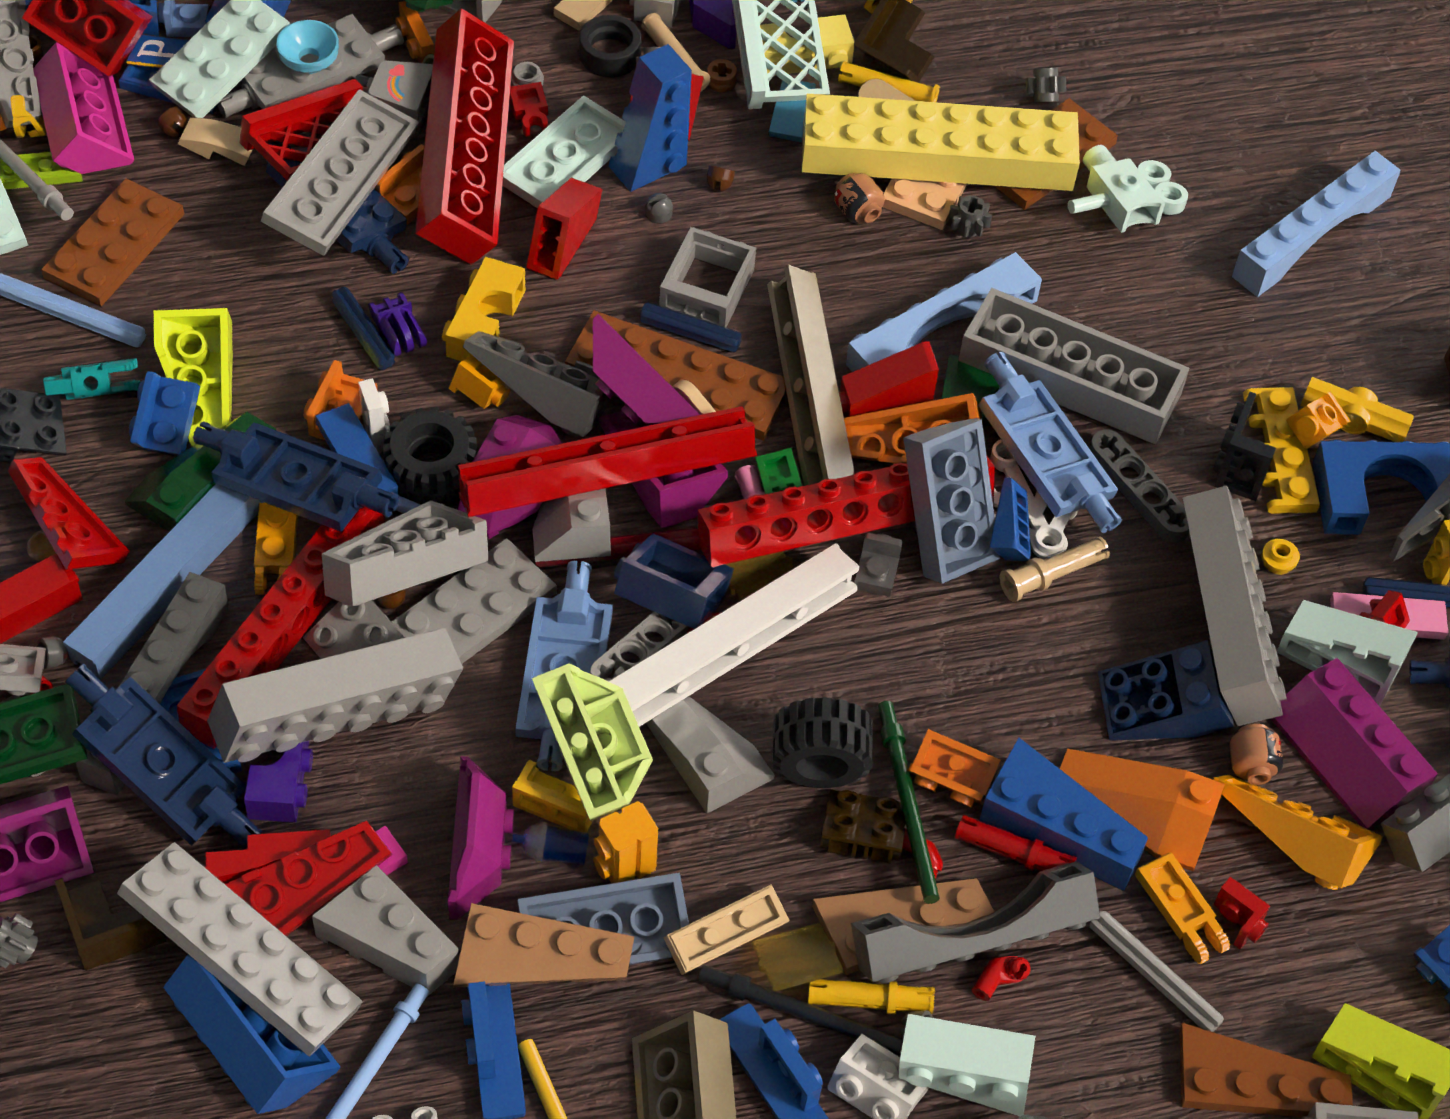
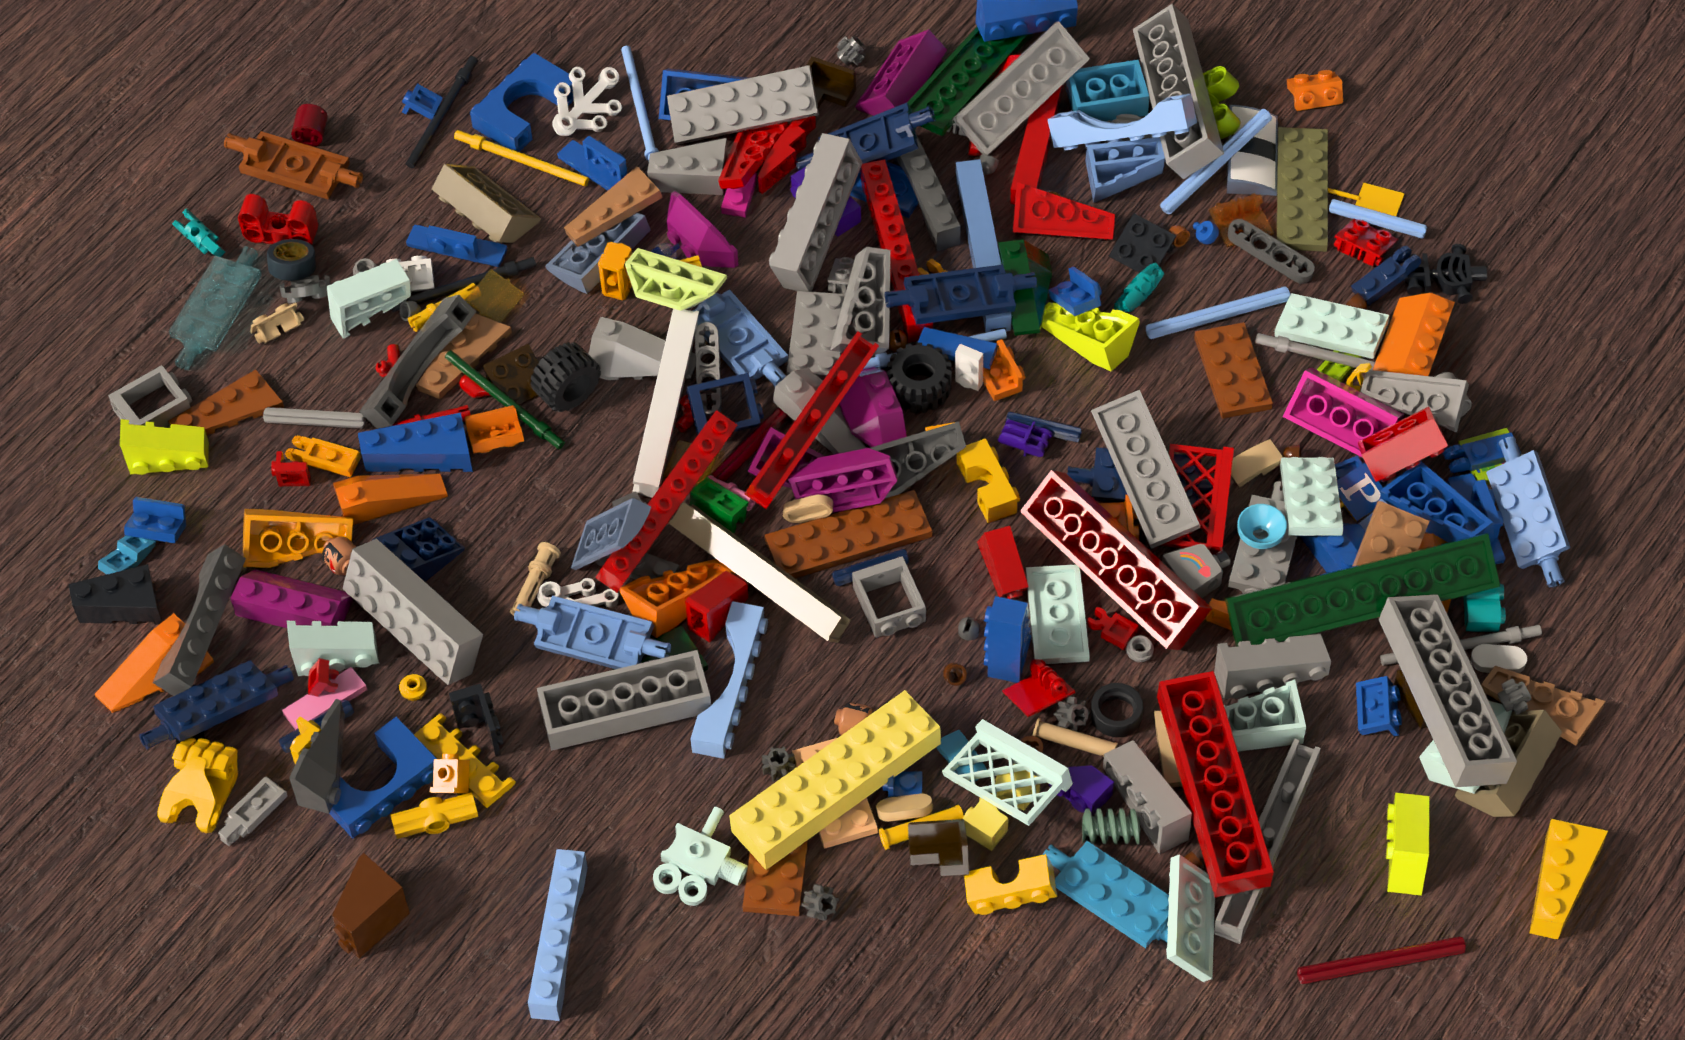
camera: 145 degrees right, 0 degrees up
(726, 929) = (538, 283): tan tile -> none
(1011, 525) = (571, 570): blue slope -> none
(1145, 483) = (525, 675): dark grey beam -> none

